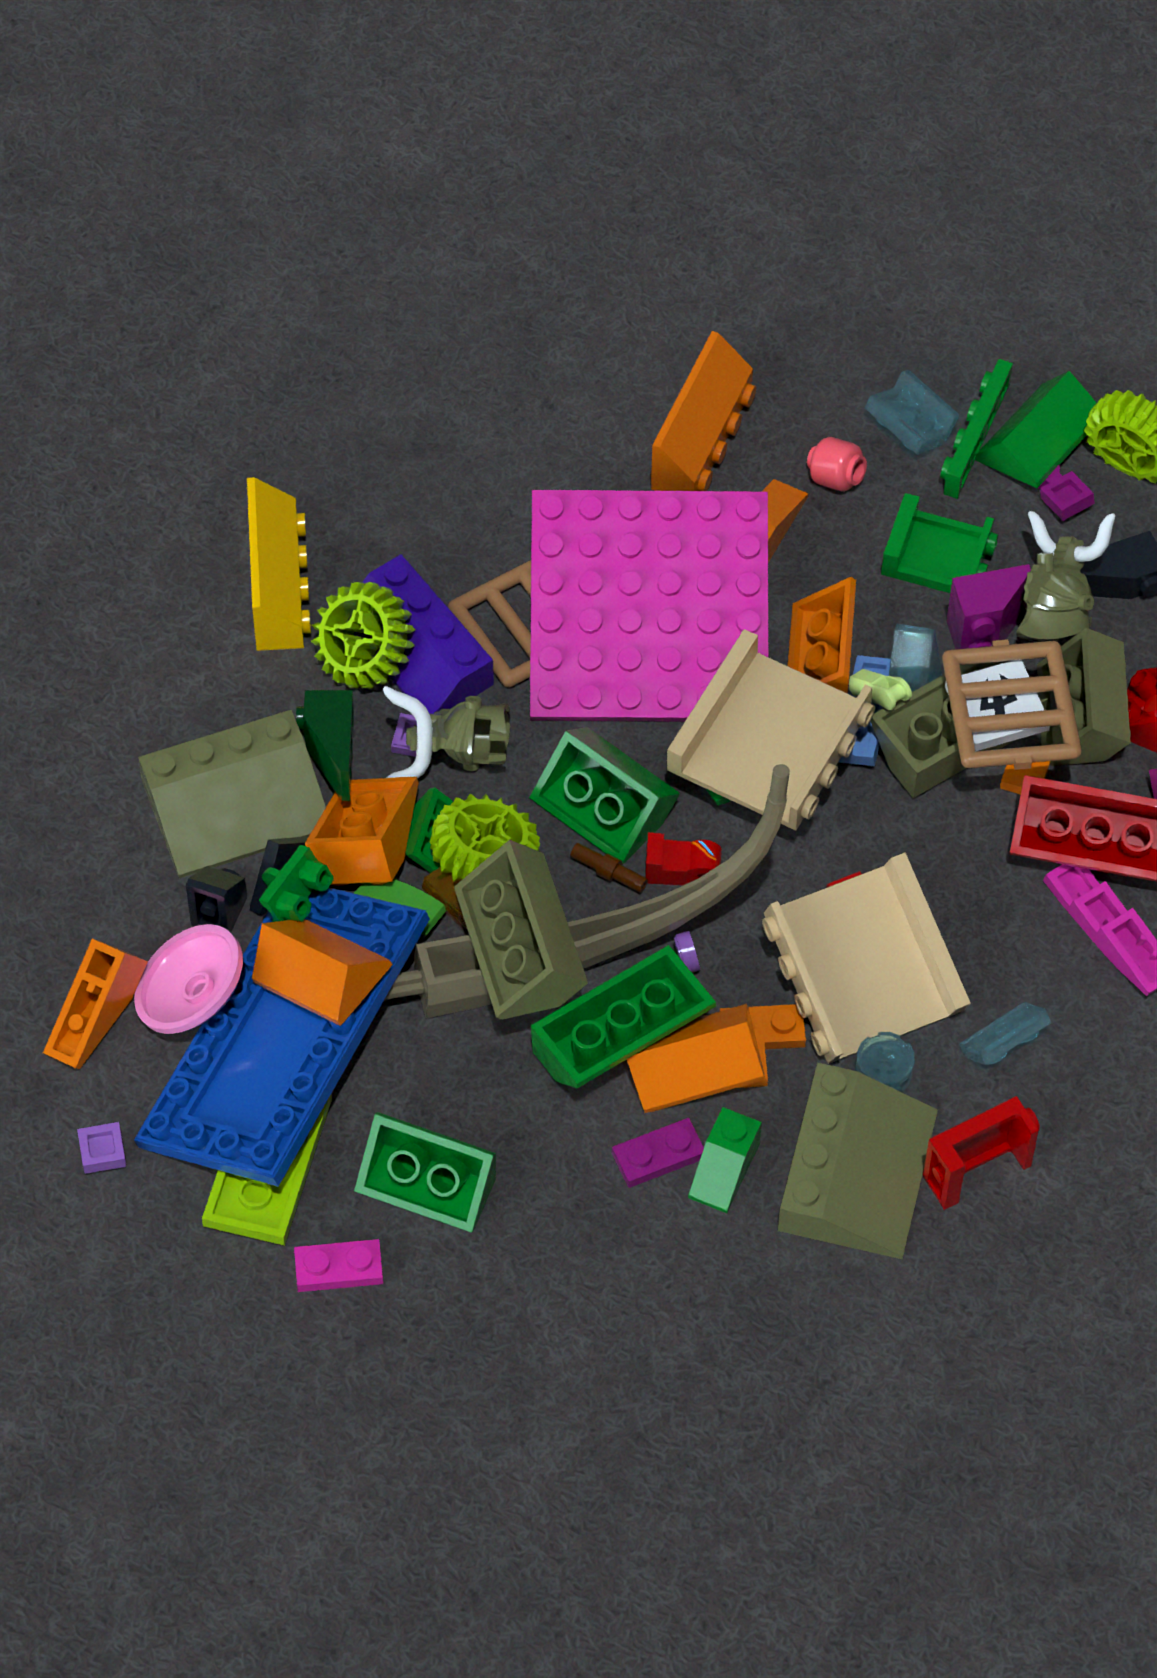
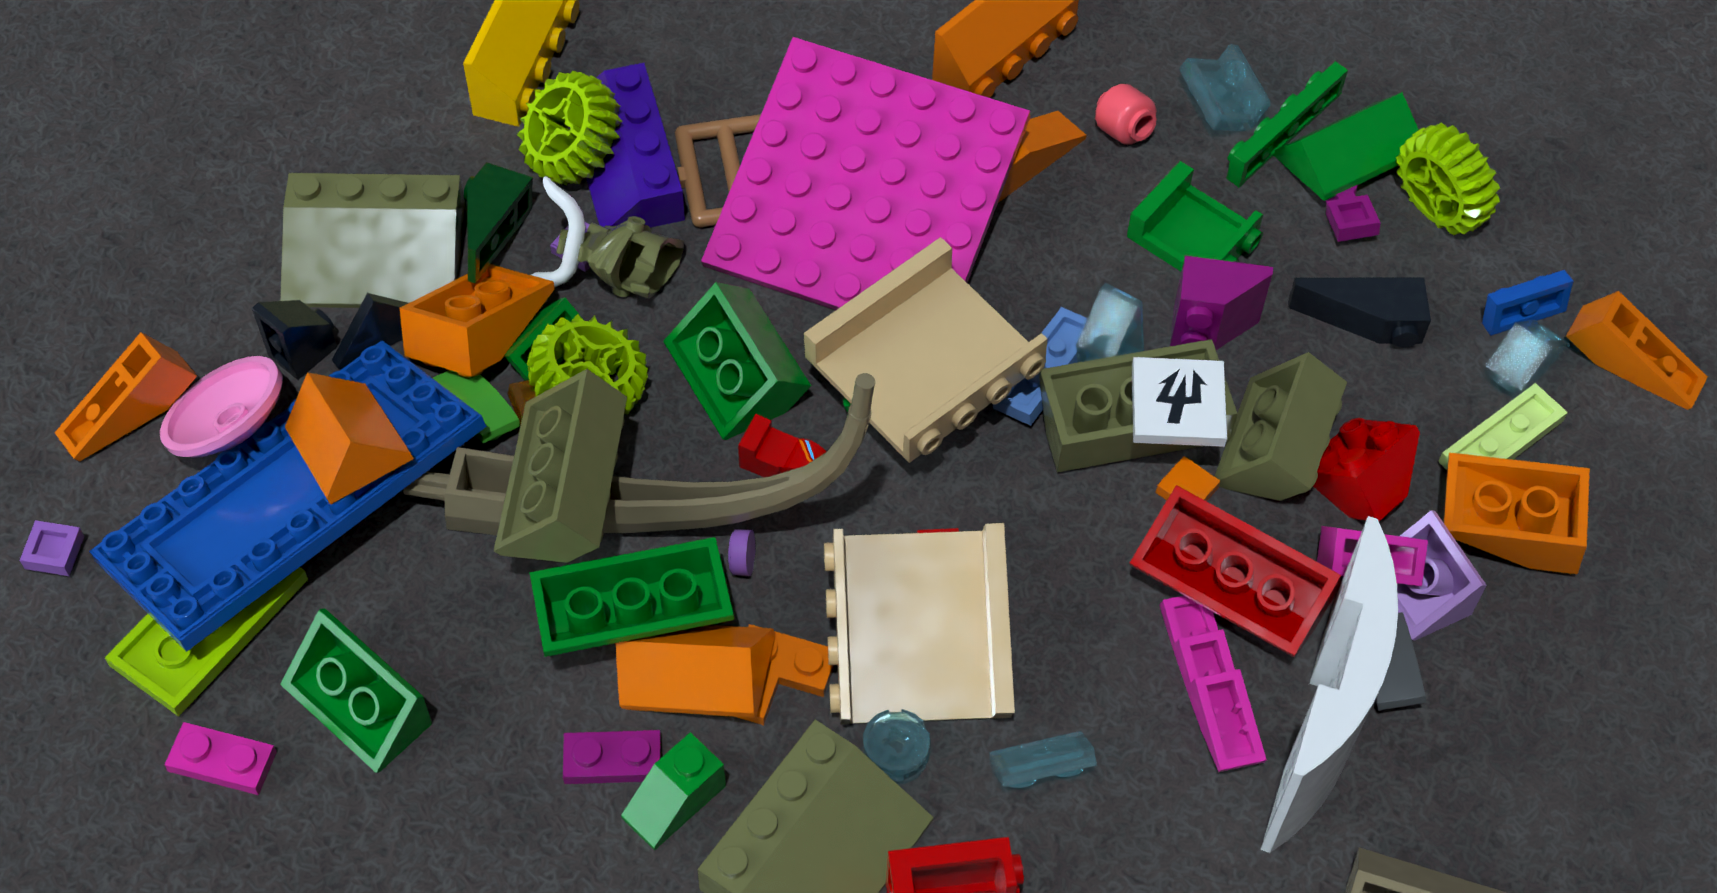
camera: 20 degrees right, 0 degrees up
(290, 887) = (367, 347): green hips -> none
(609, 867) = (707, 438): reddish brown bar -> none
(823, 634) = (1038, 278): orange slope -> none
(885, 689) = (1063, 345): yellowish green bar -> none
(1055, 587) = (1297, 307): olive helmet -> none
(1056, 682) = (1178, 463): medium nougat bar -> none

